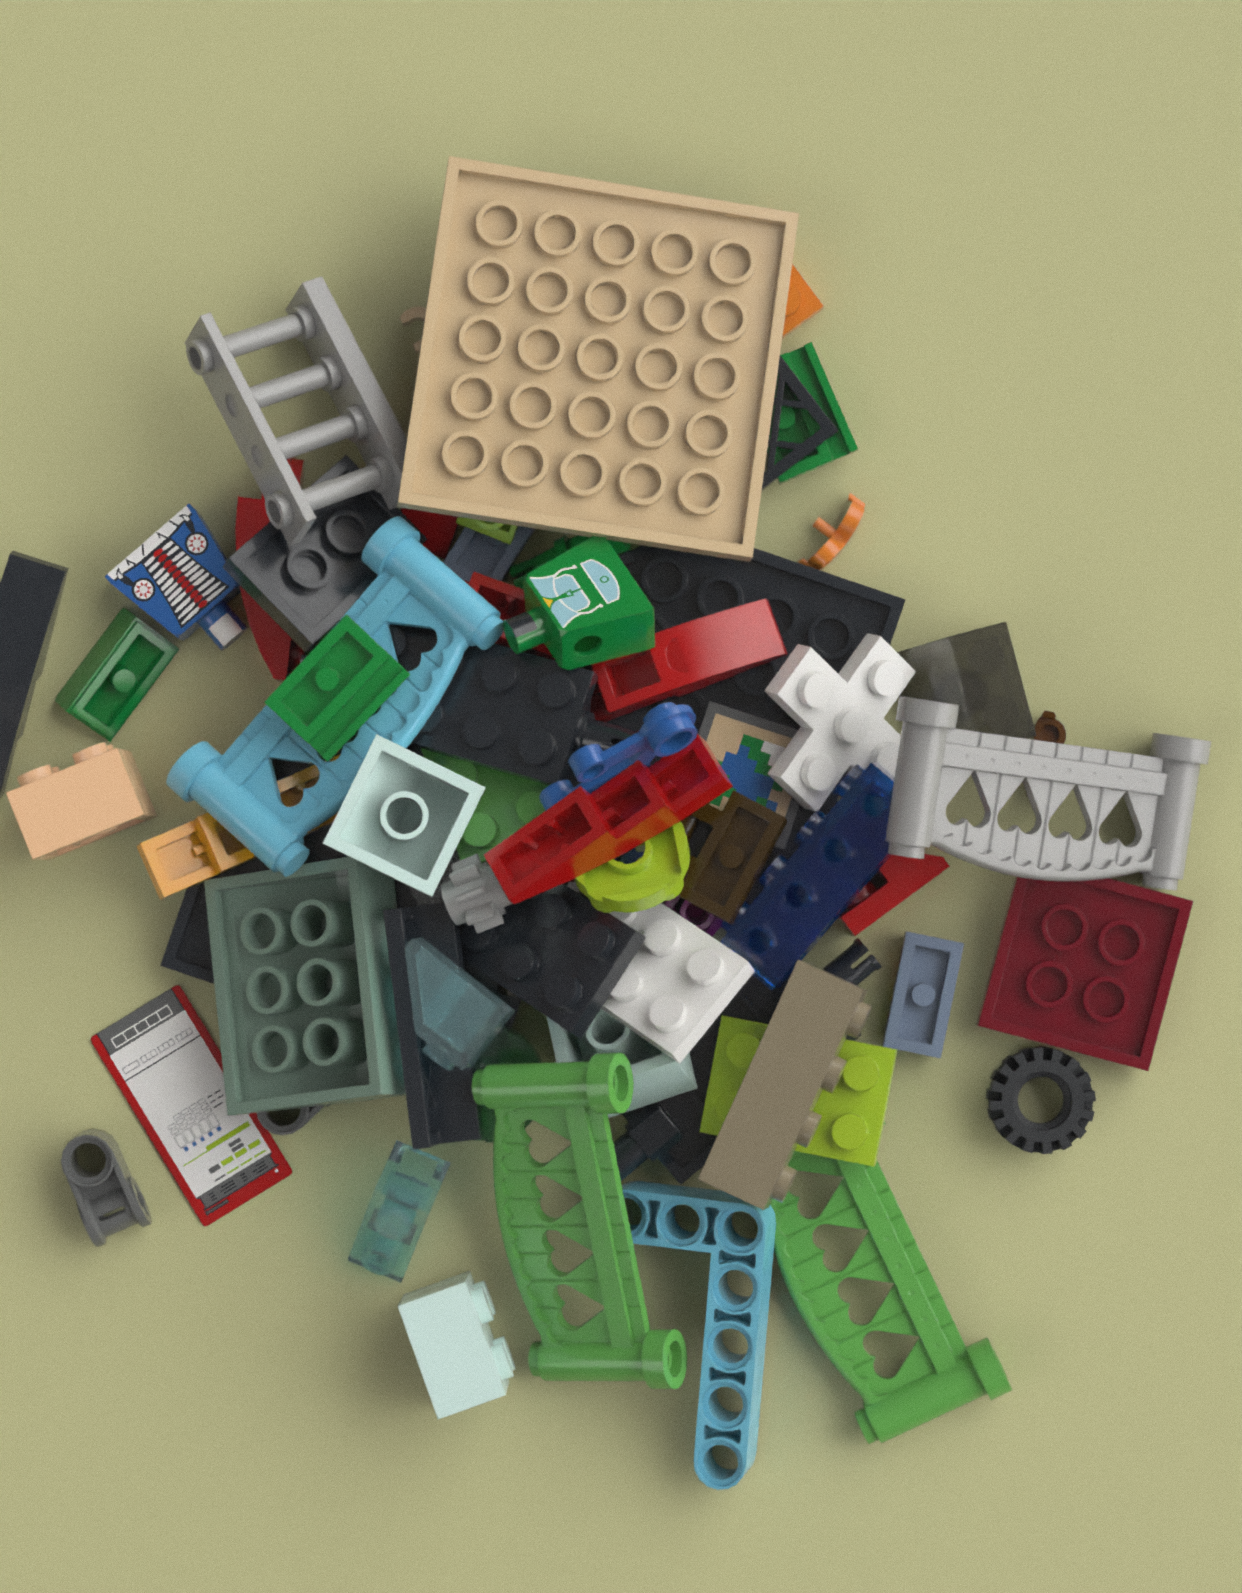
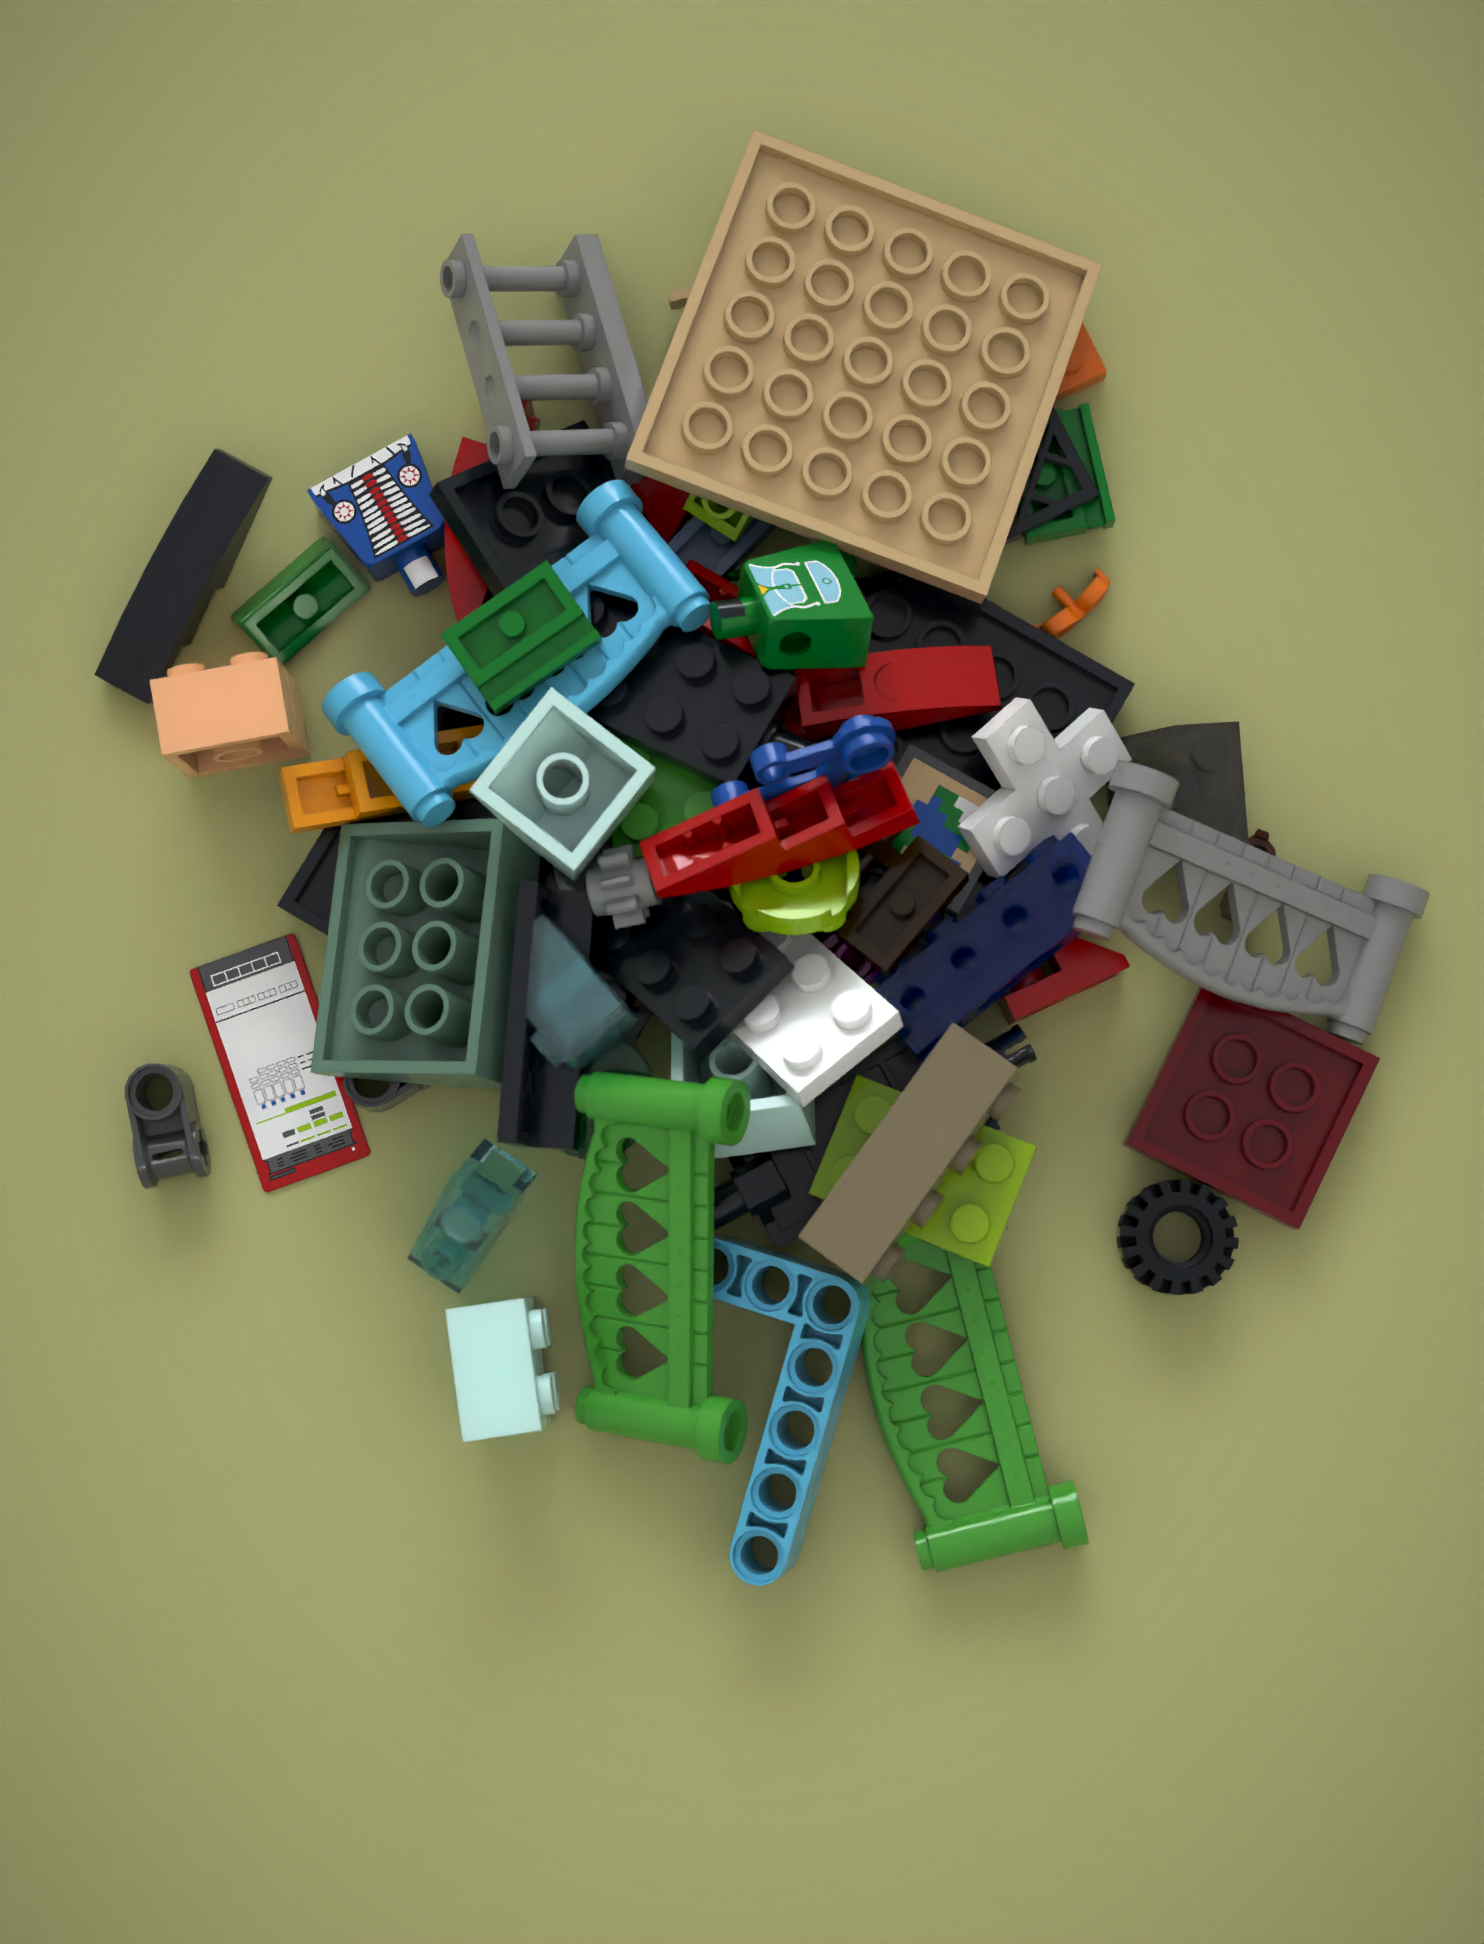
camera: 10 degrees right, 5 degrees down
(922, 994) = (1074, 1099): sand blue plate -> none

